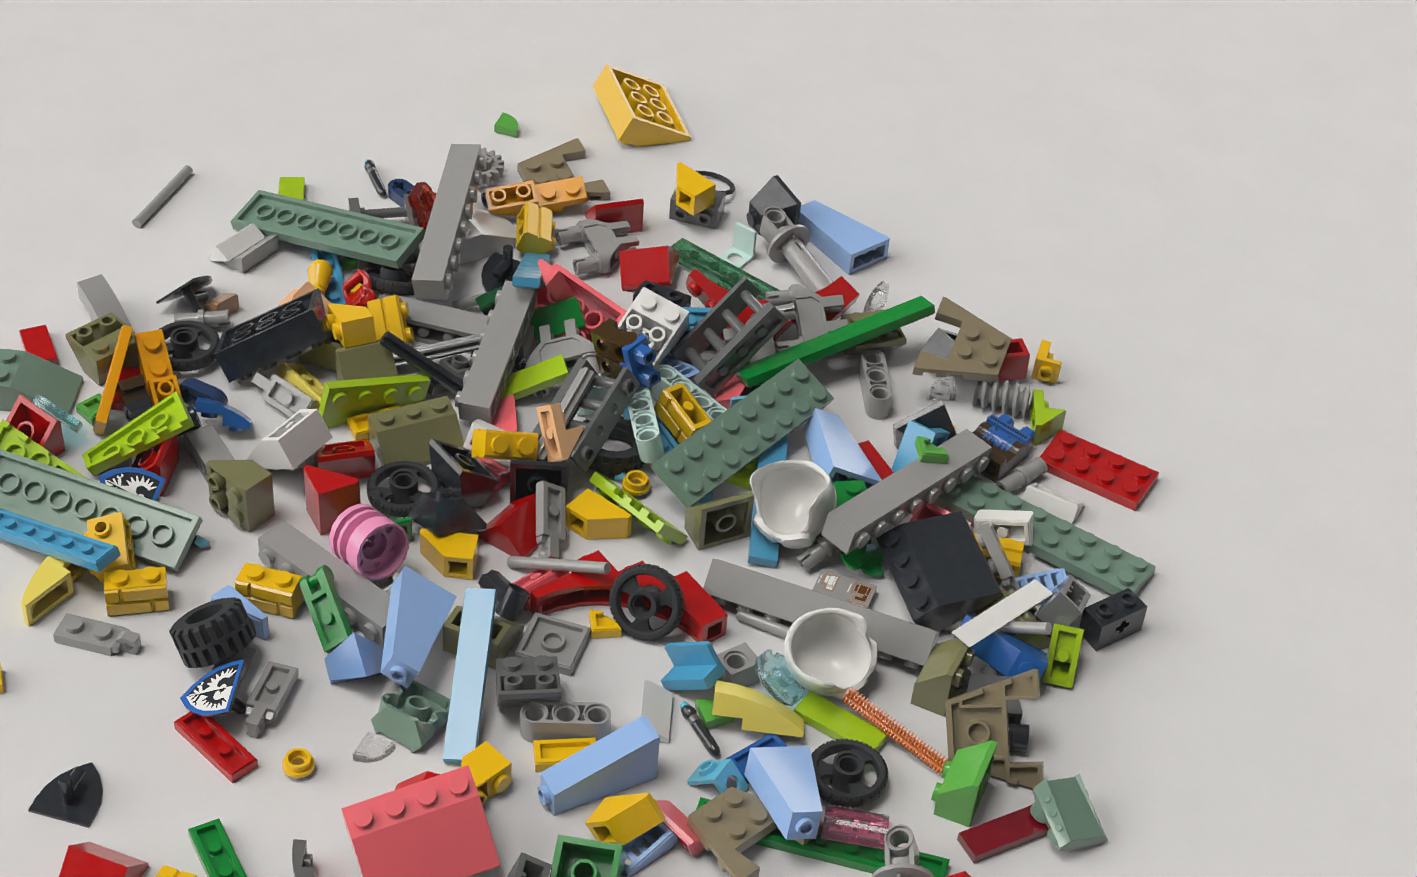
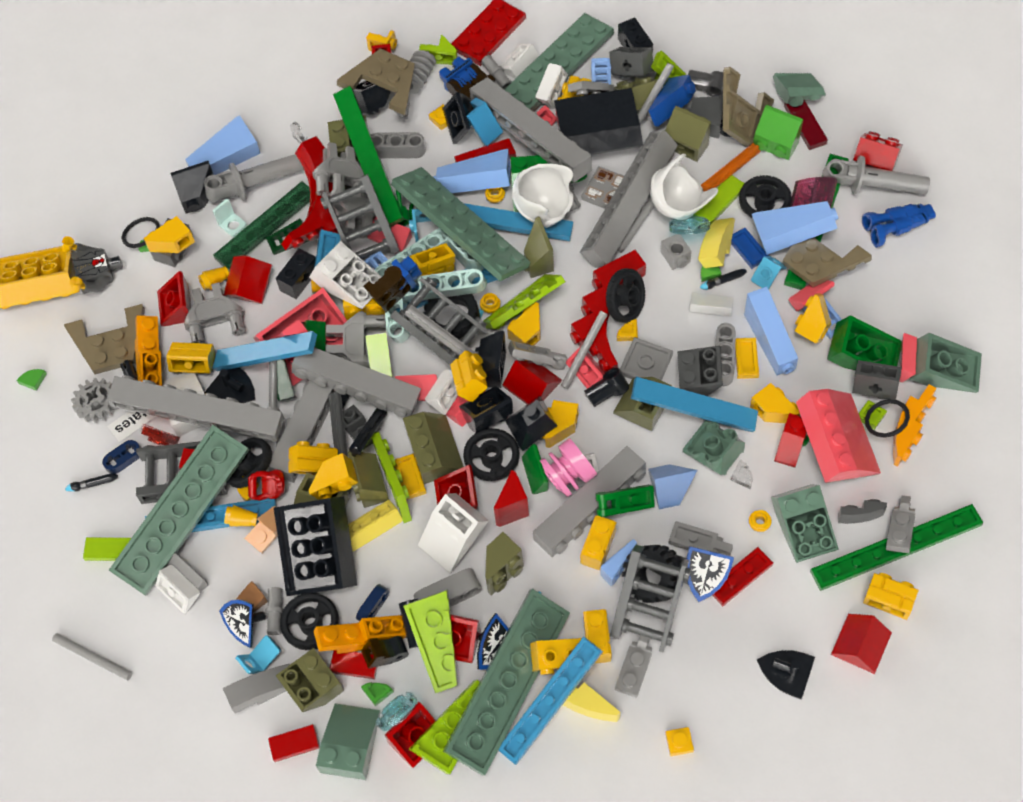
camera: 75 degrees left, 20 degrees up
(112, 379) = (363, 667): light orange tile -> none
(145, 313) = (260, 657): none -> medium azure bracket
(173, 603) = (633, 582): none -> fence
(232, 417) = (399, 584): blue slope -> none
(283, 394) = (379, 541): light grey hinge -> none
(294, 806) = (805, 522): none -> sand green slope
(413, 623) = (652, 439): light blue slope -> none
(557, 439) = (467, 336): light nougat slope -> none
(648, 237) = (213, 276): none -> yellow cone
(652, 149) = (91, 266): none -> dark grey torso
(694, 666) = (684, 274): dark azure panel -> none
(929, 452) = (501, 108): bright green tile -> none
(1002, 613) = (650, 89): white sticker -> none
(1056, 708) = (711, 83): none -> flat silver piece

